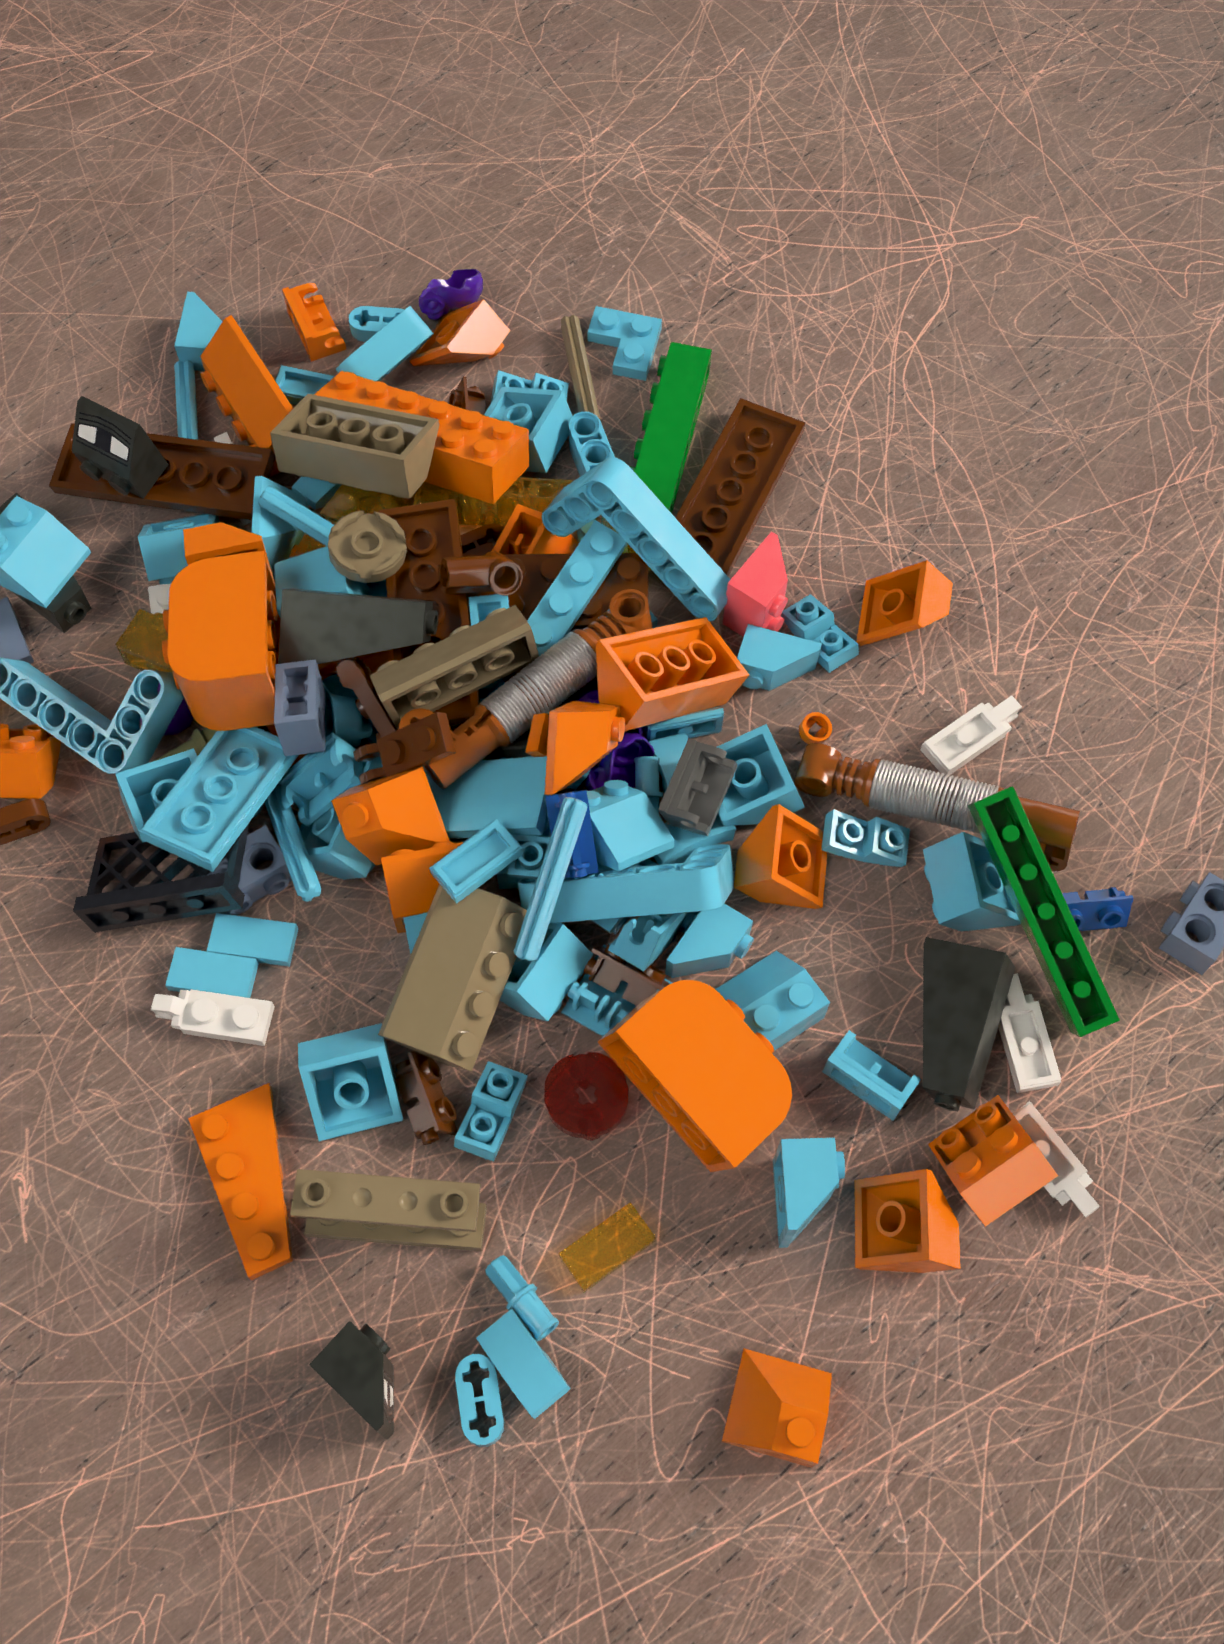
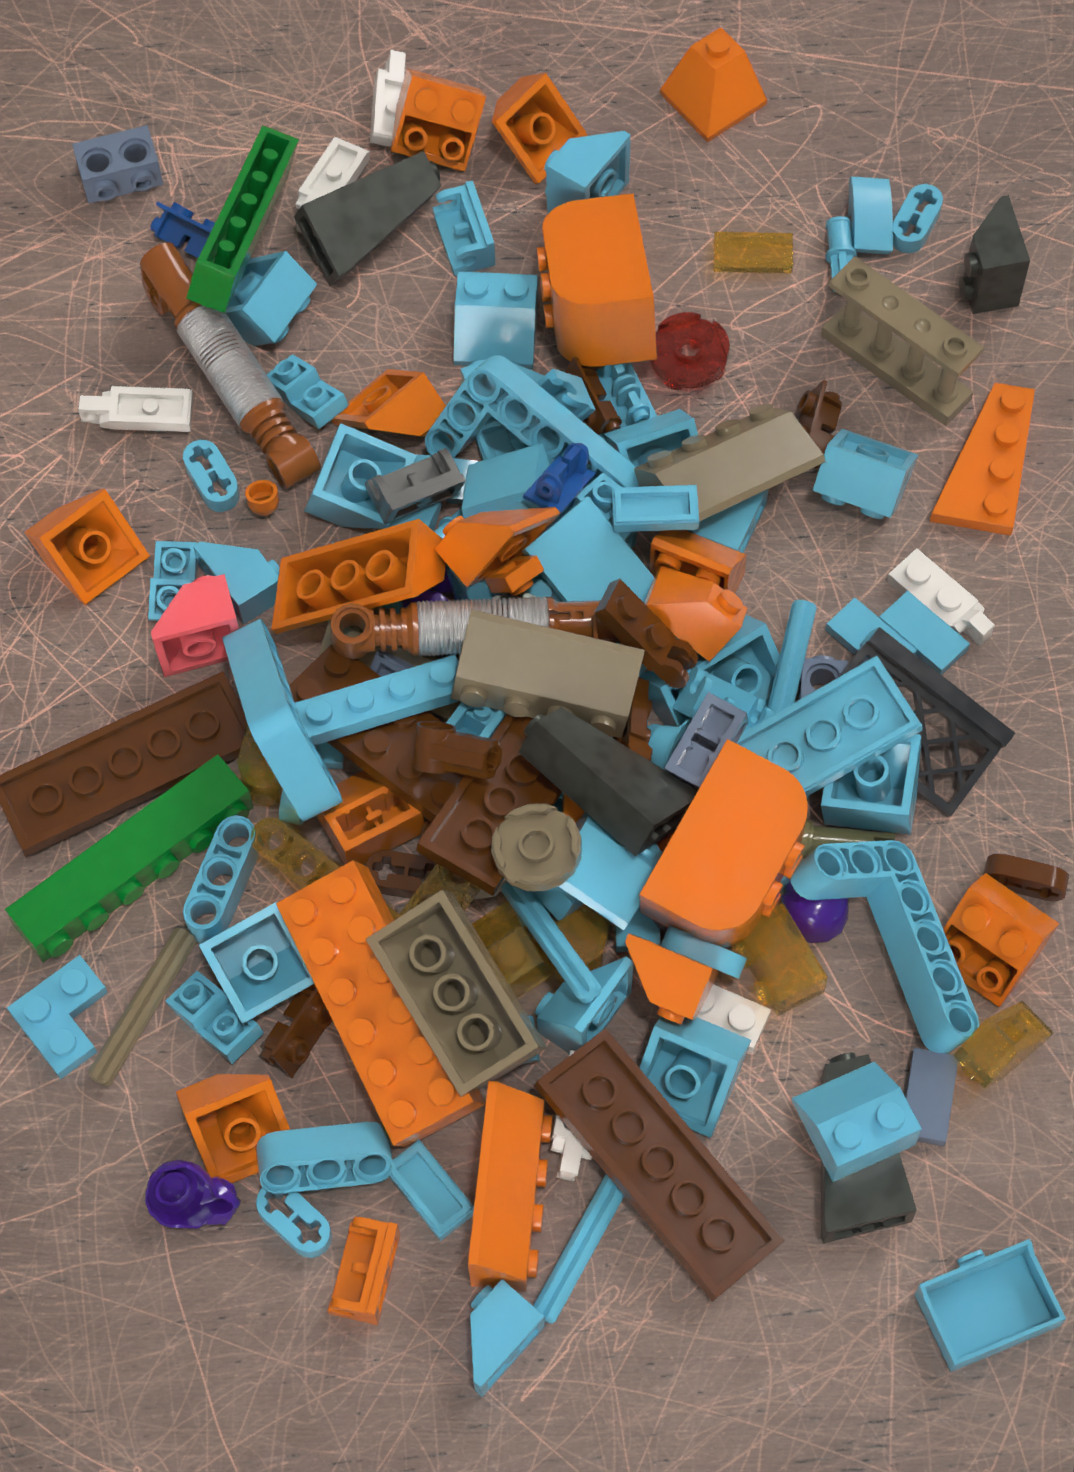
camera: 140 degrees left, 0 degrees up
(115, 449) = (697, 1180): pearl dark grey slope -> none
(490, 1111) = (777, 386): medium azure slope -> none
(550, 878) = (607, 449): medium azure axle -> none
(870, 725) = (218, 471): none -> medium azure beam

